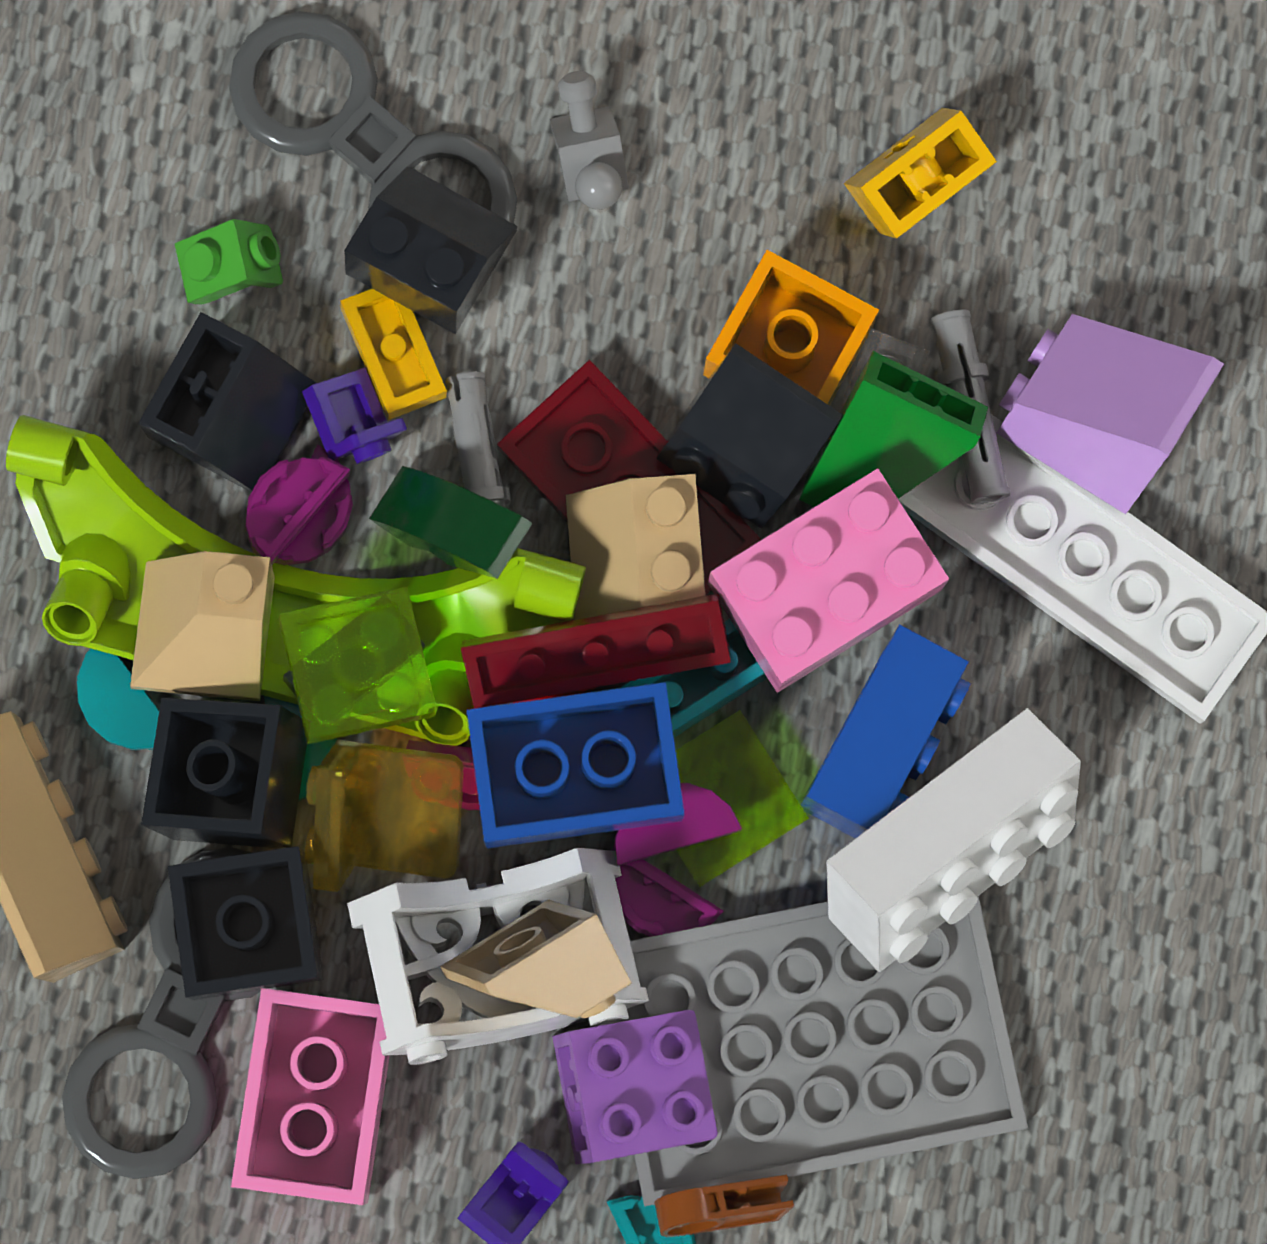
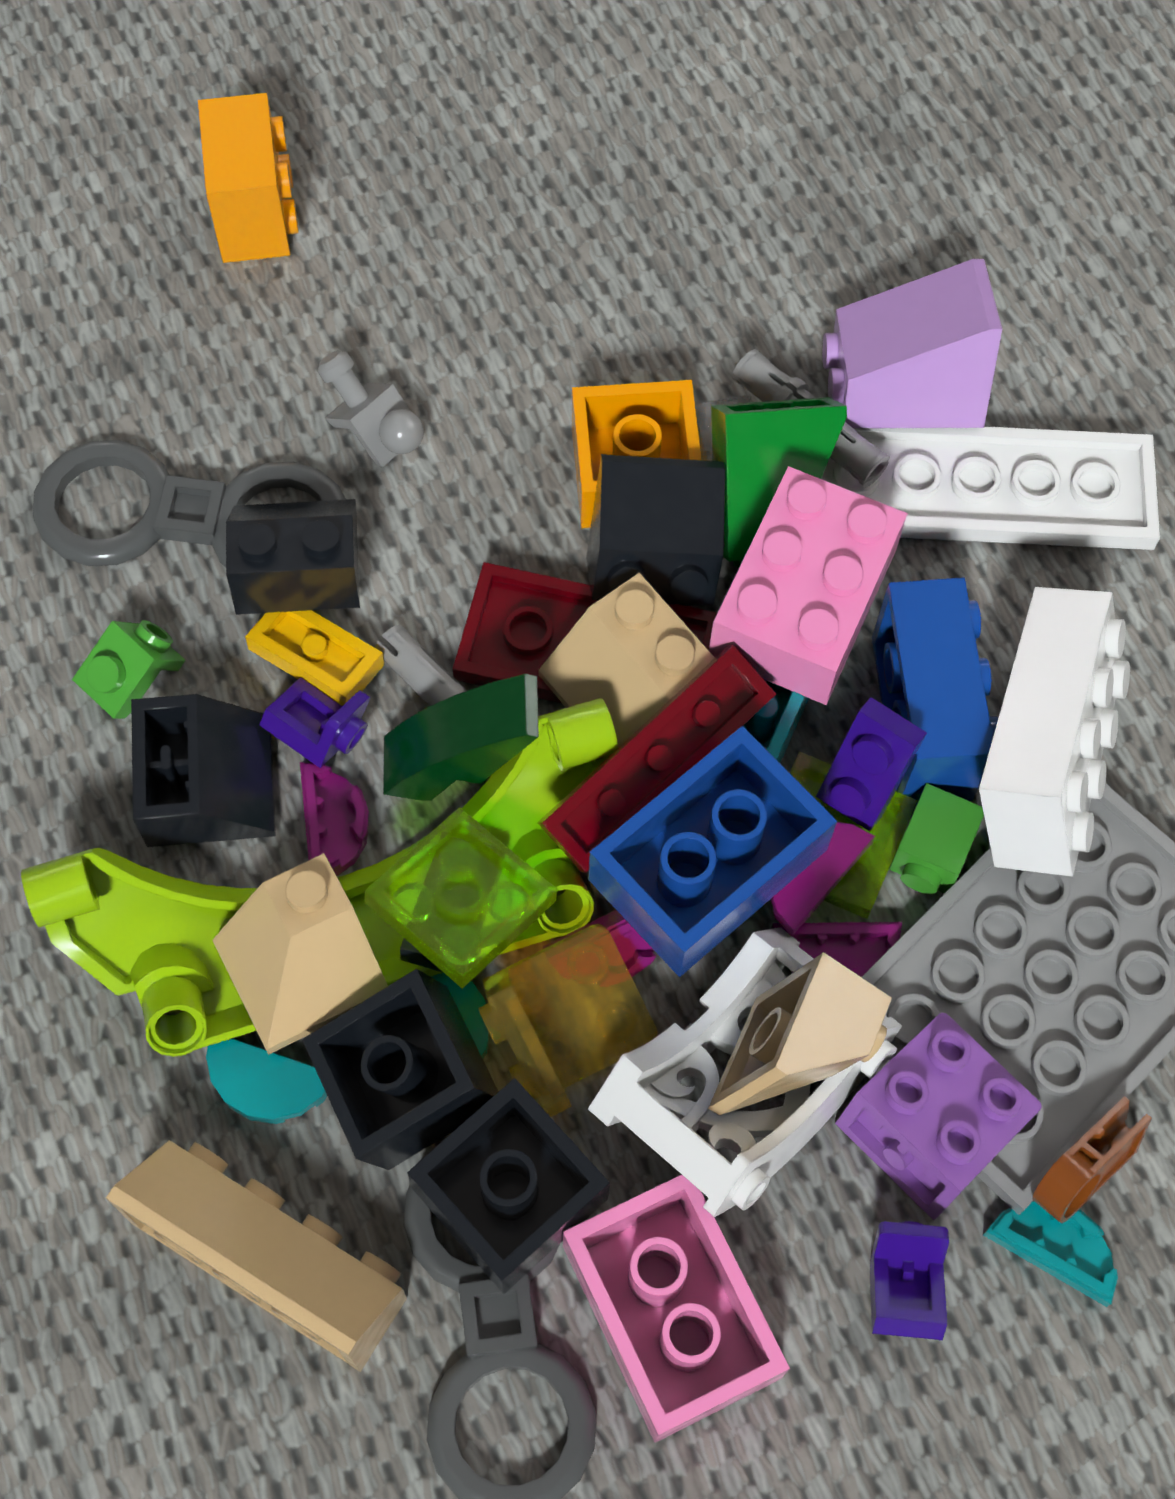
camera: 30 degrees left, 15 degrees down
(288, 500) = (305, 812): magenta tile -> none
(771, 771) = (870, 764): none -> dark purple plate
(794, 863) = (937, 841): none -> bright green brick
(920, 172) = (646, 281): yellow brick -> none

